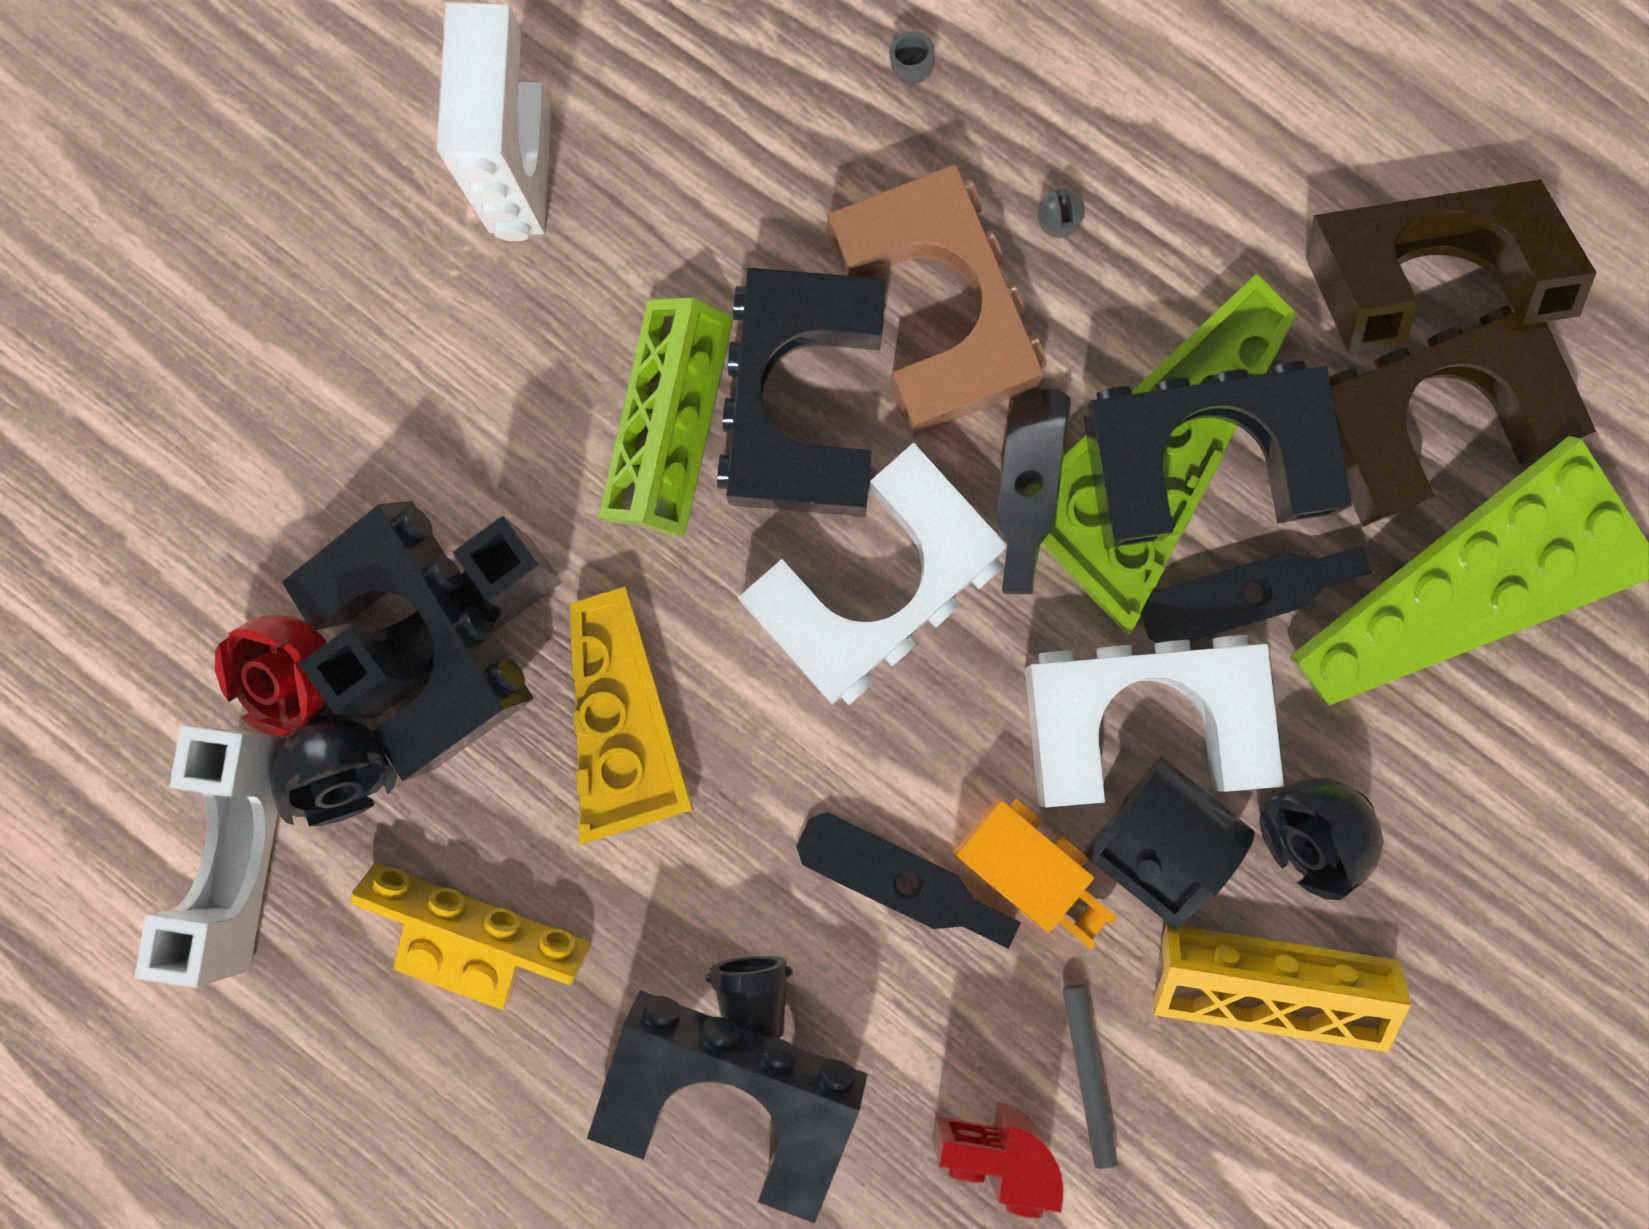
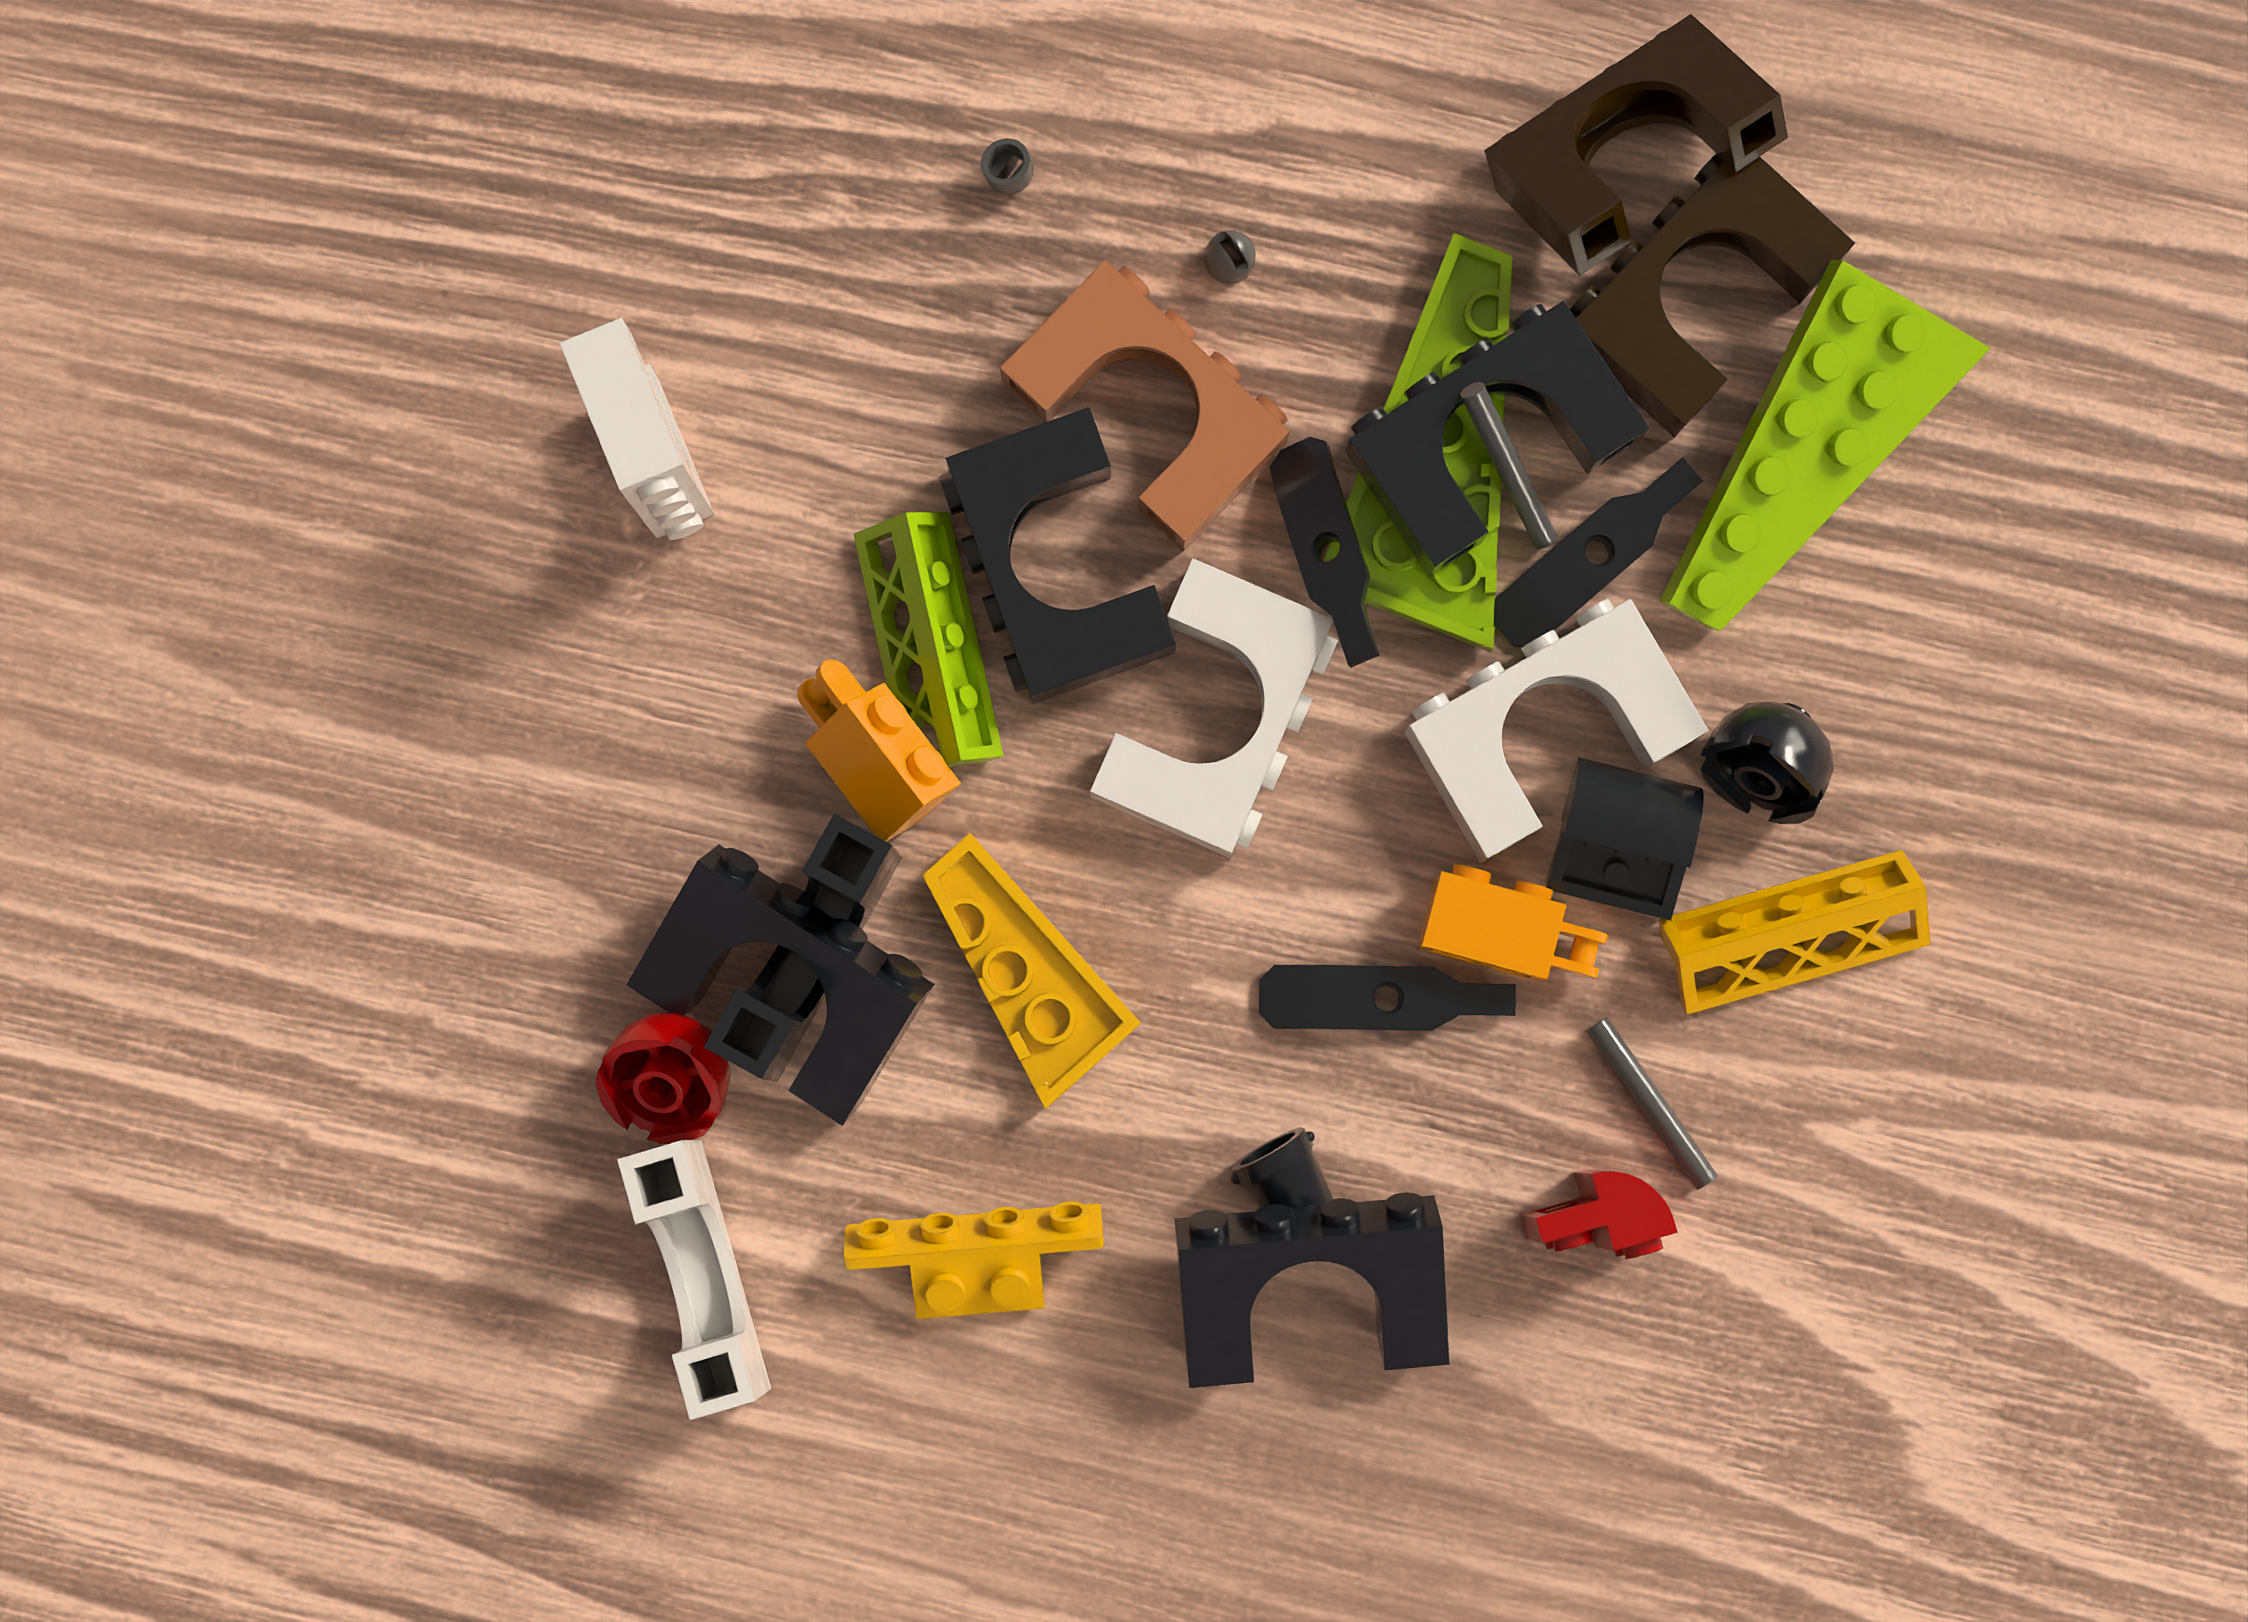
camera: 30 degrees left, 0 degrees up
(329, 771) = (761, 1150): black cylinder -> none
(576, 483) = (873, 751): none -> light orange brick
(1215, 484) = (1508, 465): none -> dark grey bar

